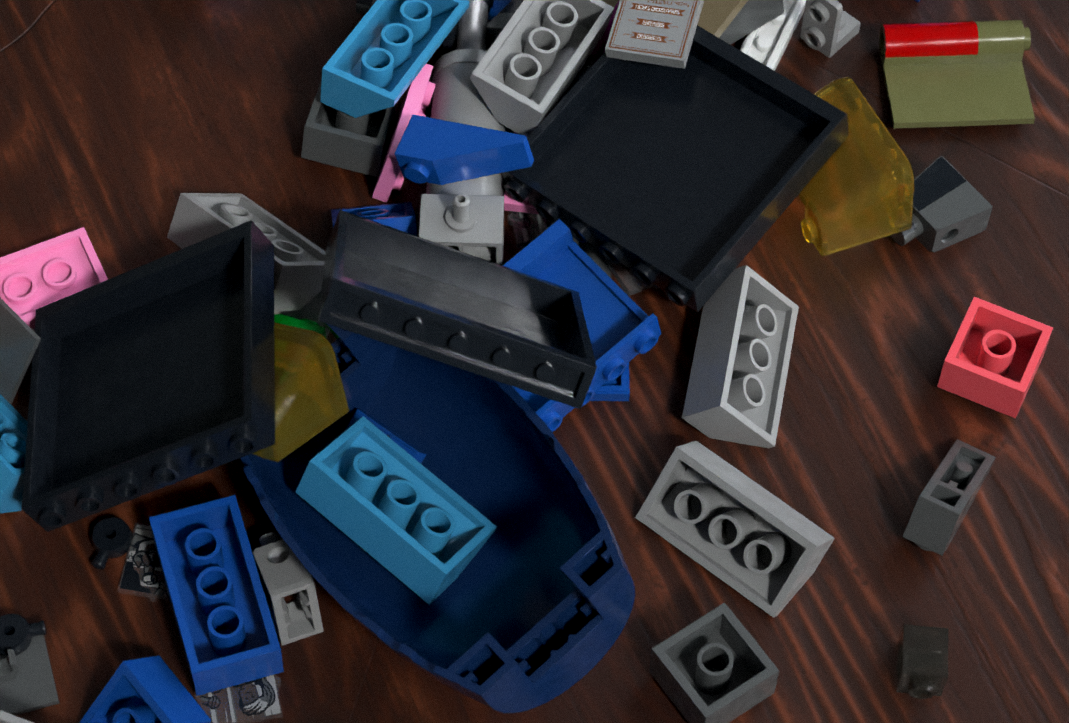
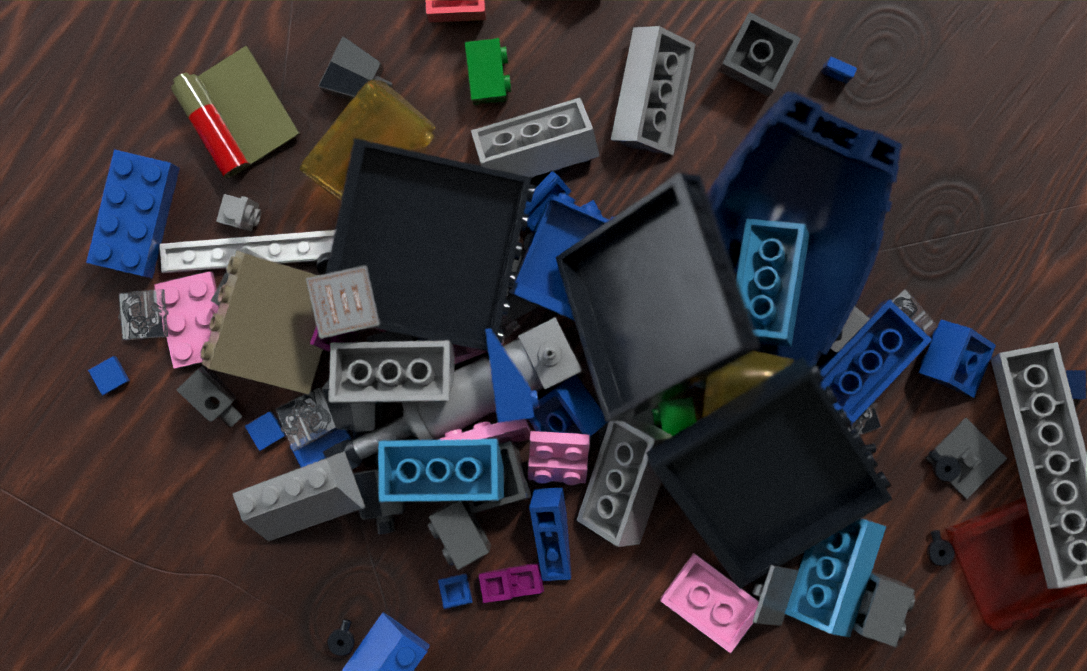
camera: 115 degrees left, 30 degrees up
(216, 97) = (511, 582): none -> magenta slope
(245, 42) = (455, 591): none -> blue tile
(250, 156) = (551, 533): none -> blue slope
(299, 52) = (459, 532): none -> dark grey brick
(329, 191) = (558, 457): none -> bright pink plate
(672, 347) = (550, 186): none -> blue tile
(865, 348) = (485, 71): none -> green brick

